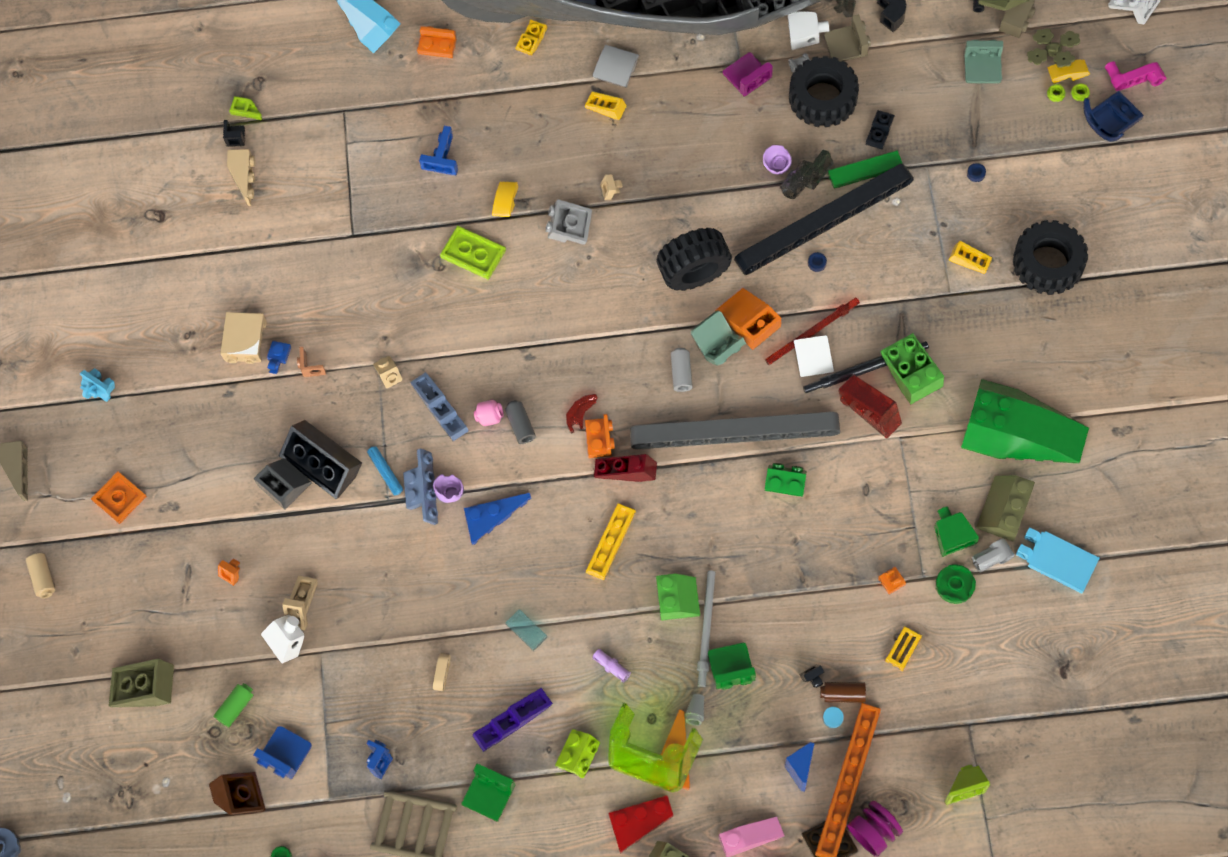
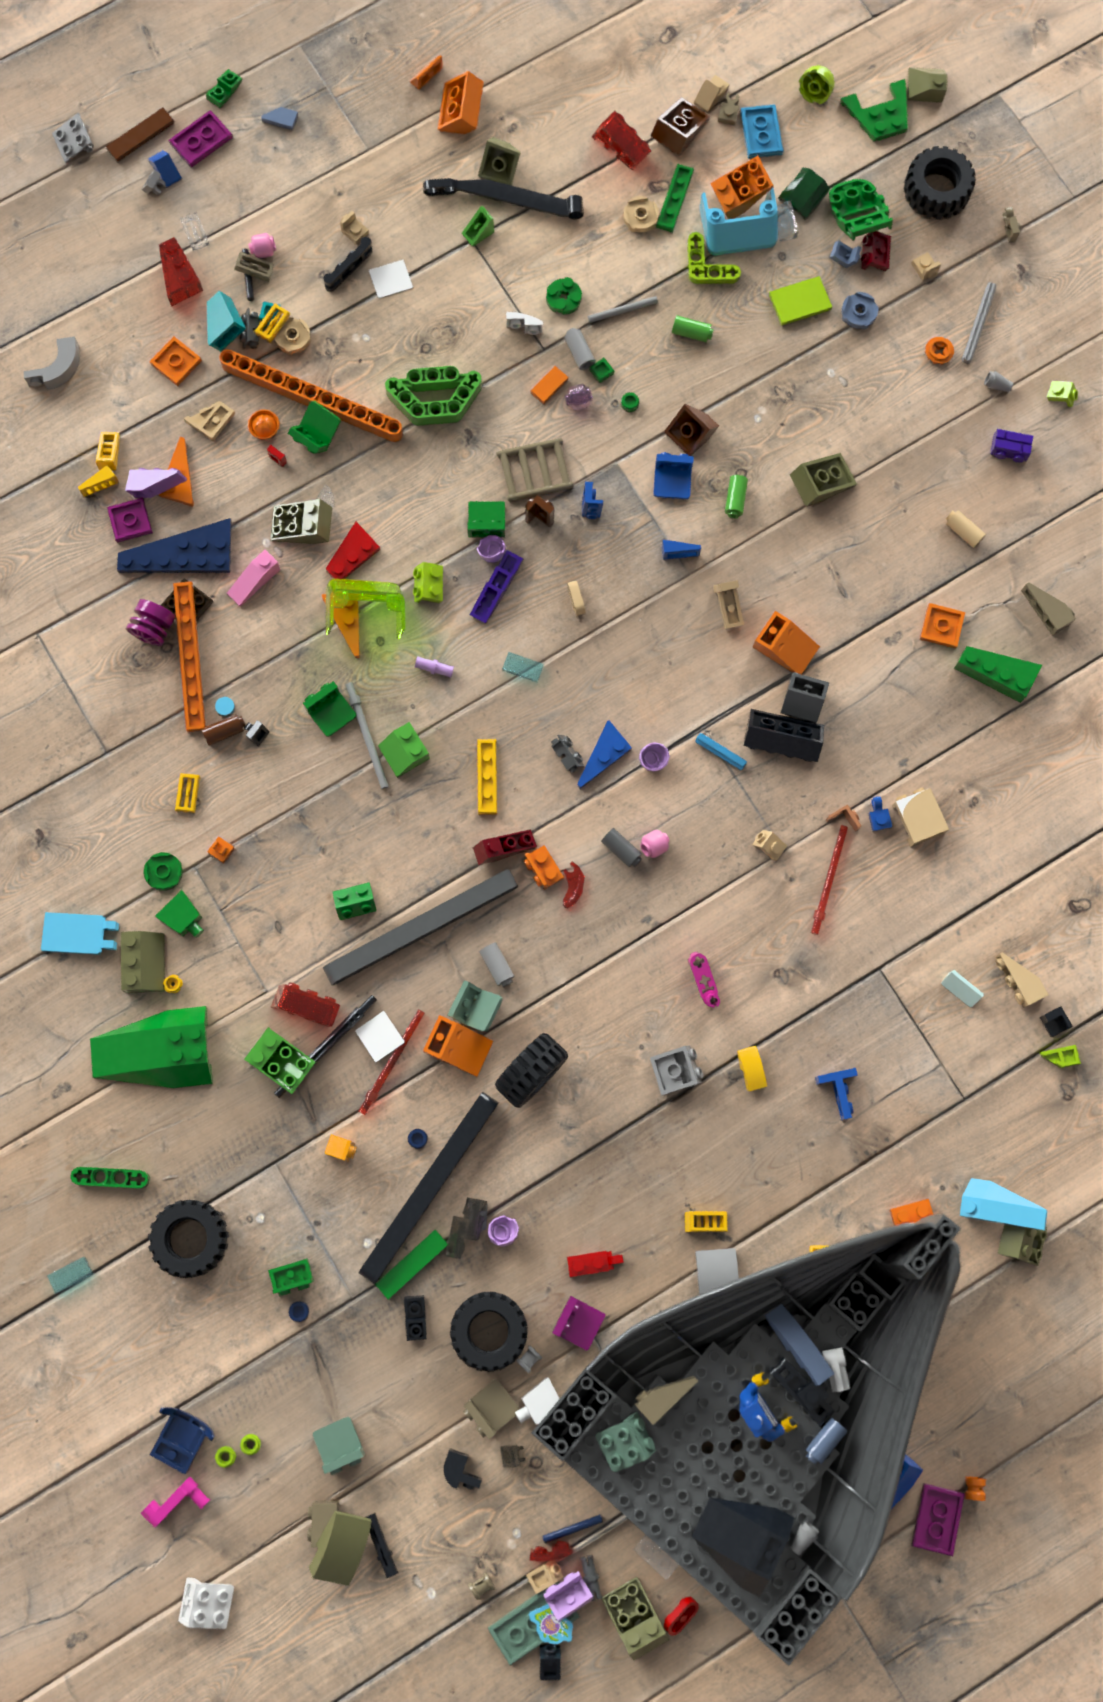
camera: 145 degrees right, 10 degrees up
(91, 425) = (1000, 672): none -> green wedge
(94, 387) = (1034, 716): medium azure hips -> none
(229, 571) = (805, 602): orange tile -> none
(271, 540) = (786, 644): none -> orange slope
(284, 637) = (725, 564): white torso -> none
(294, 189) = (962, 988): none -> light aqua slope
(320, 676) = (676, 550): none -> blue slope
(378, 296) = (819, 914): none -> clear red bar
(419, 487) = (681, 749): sand blue bracket -> none
(436, 777) = (541, 509): none -> reddish brown bracket
(439, 406) = (704, 832): sand blue slope -> none
(473, 252) = (754, 1001): lime tile -> none
(498, 757) = (491, 548): none -> lavender hair
(504, 291) = (698, 972): none -> dark pink beam
(524, 520) = (564, 746): none -> dark grey hinge
(610, 187) = (655, 1127): tan tile -> none
(695, 710) = (344, 660): light grey cone -> none
(713, 112) = (592, 1263): none -> red hinge
(799, 765) = (234, 647): blue slope -> none
(888, 274) = (340, 1148): none -> light orange slope
(967, 249) = (282, 1209): yellow slope -> none
(968, 783) = (87, 692): lime slope -> none
(972, 196) = (291, 1276): none -> green bracket
(984, 472) = (172, 979): none -> yellow plate
(997, 553) = (134, 914): light grey piece -> none
(1053, 49) = (271, 1498): olive plant -> none
(1076, 71) = (246, 1477): yellow slope -> none
(1104, 334) = (110, 1177): none -> green beam
(1165, 276) = (70, 1275): none -> clear light blue tile

